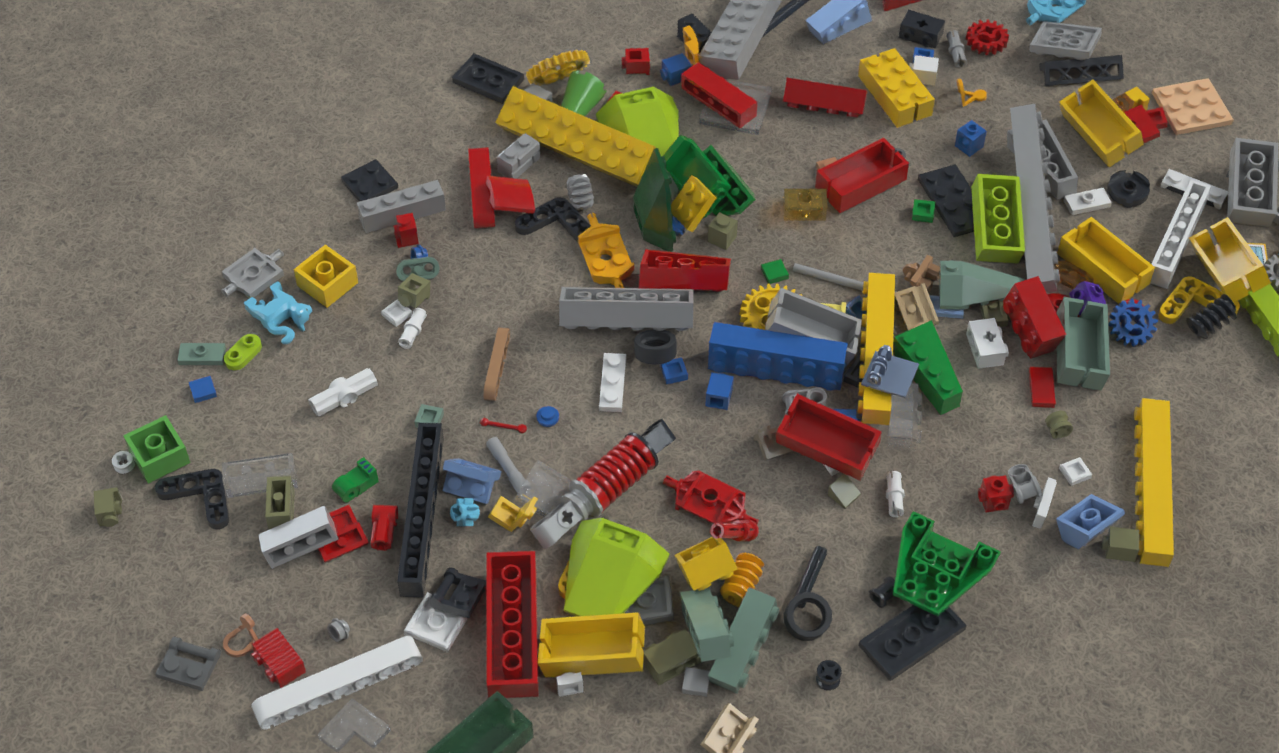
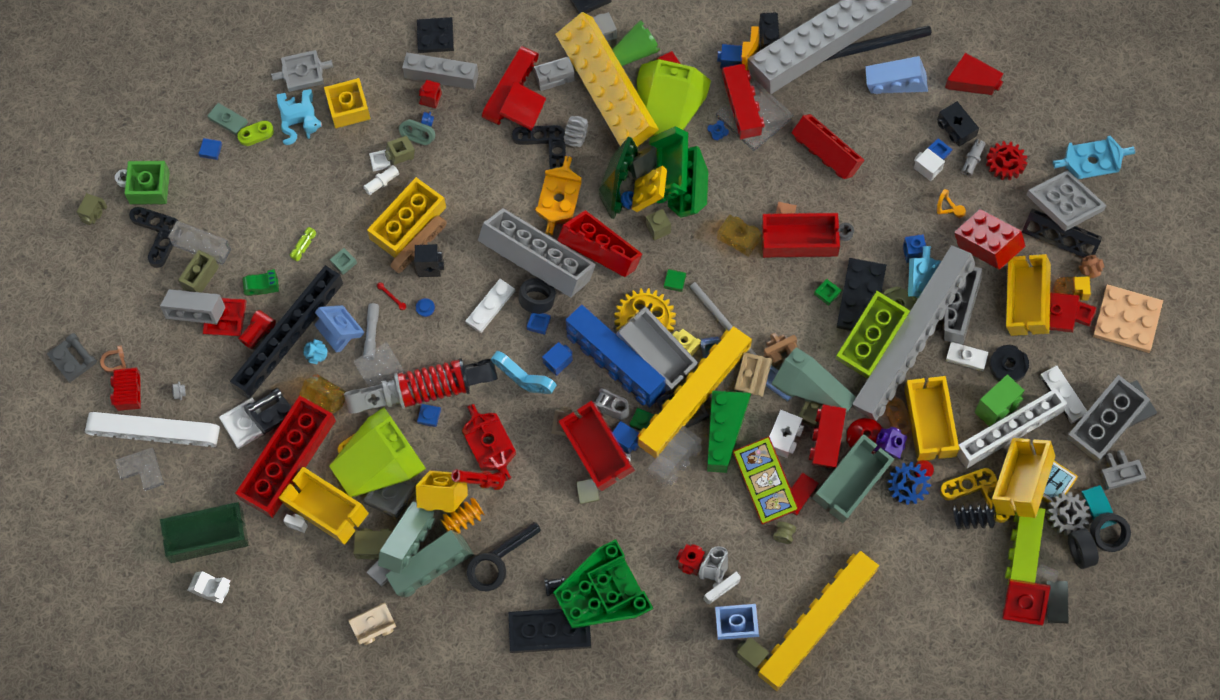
camera: 35 degrees right, 15 degrees up
(343, 392) = (299, 206): white piece -> none
(372, 425) = (303, 244): none -> lime axle
(468, 345) = (406, 217): none -> yellow brick
(504, 542) = (323, 393): none -> clear yellow brick
(510, 515) = (344, 370): yellow bracket -> none
(522, 368) = (428, 260): none -> black brick
(546, 72) = (633, 10): yellow gear -> none
(629, 510) = (429, 415): none -> blue plate
(636, 61) = (706, 32): red brick -> none
(702, 425) = (531, 383): none -> medium azure beam
(711, 133) = (716, 135): none -> blue plate
(830, 669) = (469, 619): black wheel -> none
(843, 400) = (641, 419): none -> green plate
(889, 373) = (677, 422): sand blue hinge -> none
(895, 494) = (621, 515): white pin -> none
(896, 87) = (892, 168): yellow piece -> none
(1000, 150) = (921, 272): none -> medium azure plate
(1006, 388) = (766, 480): none -> tile
(1042, 88) = (989, 239): none -> red brick
(1075, 471) = (768, 576): white tile -> none
(1129, 79) = (1091, 266): none -> nougat gear
(1153, 216) = (1000, 401): none -> bright green brick

